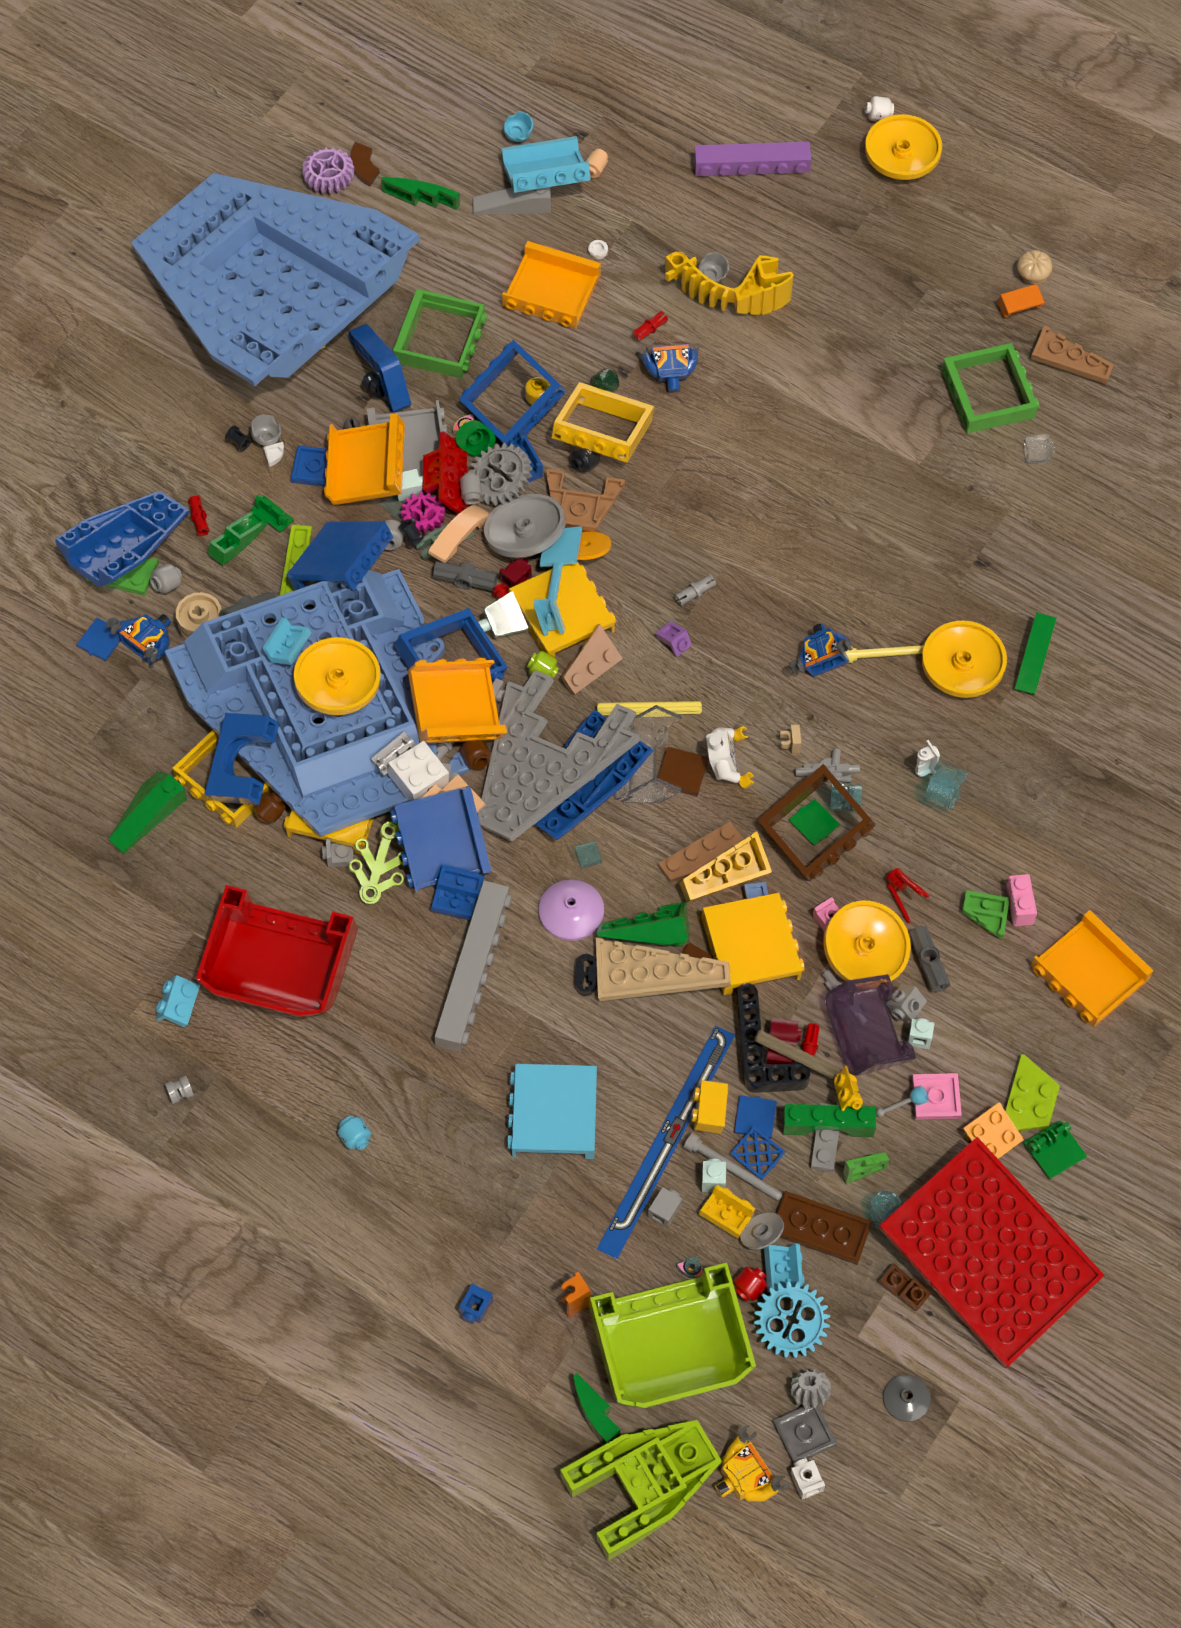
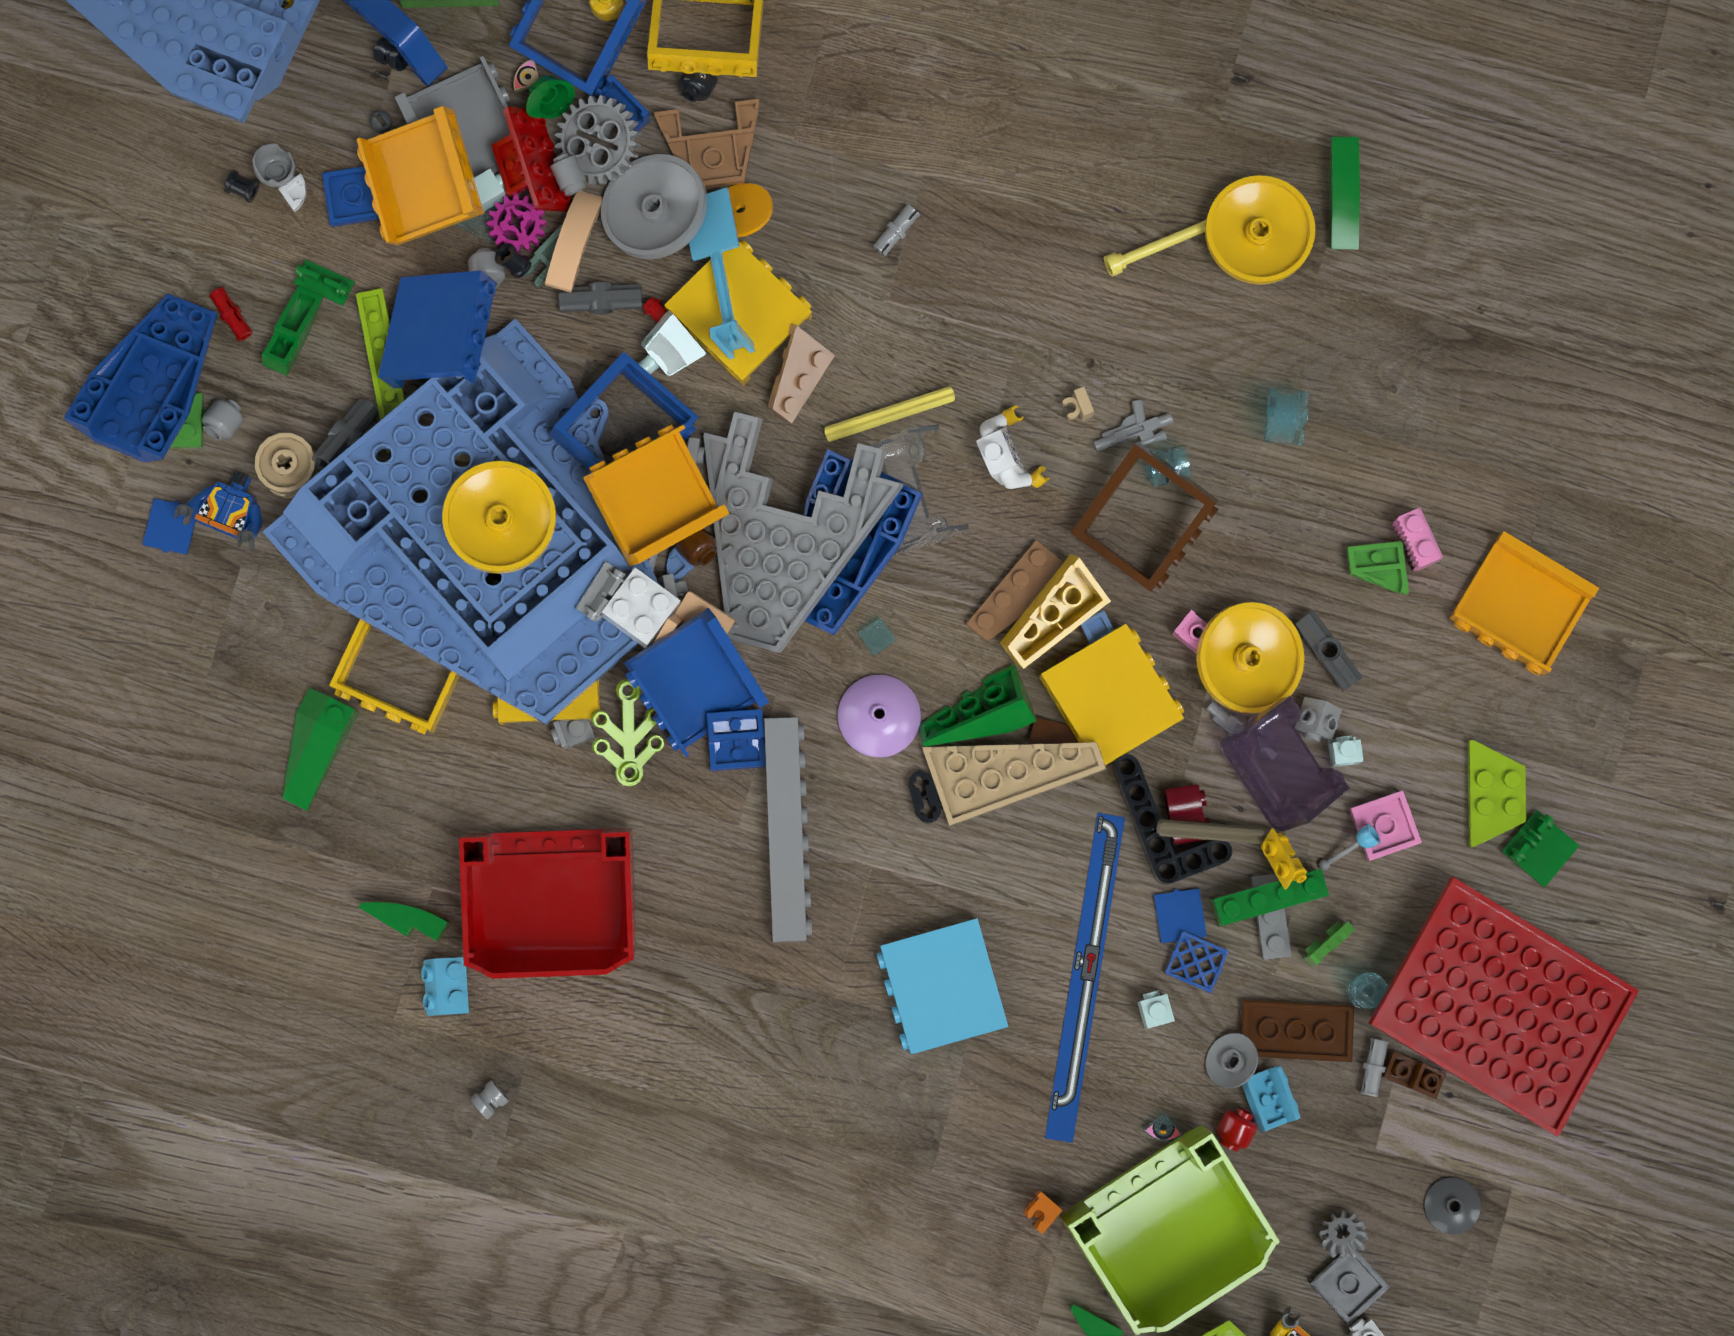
camera: 20 degrees left, 20 degrees up
(167, 945) = (407, 919): none -> green slope
(235, 733) = (402, 692): blue arch -> none
(270, 807) = (467, 700): reddish brown head -> none
(286, 642) = (418, 487): medium azure bracket -> none
(354, 1133) = (716, 1088): medium azure head -> none
(475, 1296) = (929, 1243): blue brick -> none
(515, 573) = (664, 277): dark red brick -> none
(543, 663) = (740, 397): lime head -> none
(665, 1207) = (1111, 1065): light grey brick -> none
(675, 637) = (890, 306): medium lavender bracket -> none
(684, 770) = (957, 488): reddish brown tile -> none
(695, 1144) = (1122, 975): light grey piece -> none
(710, 1106) = (1125, 925): yellow brick -> none
(727, 1211) = (1184, 1049): yellow bracket -> none
(811, 1038) = (1218, 807): red axle -> none
(811, 1328) = (1322, 1161): medium azure gear -> none
(814, 822) = (1137, 507): green piece -> none
(822, 651) = (1082, 273): torso -> none
(874, 1271) = (1374, 1067): none -> light grey pin
(900, 881) = (1263, 556): red plant -> none
(927, 760) = (1255, 387): white hinge -> none
(994, 1130) = (1464, 853): light orange hinge -> none

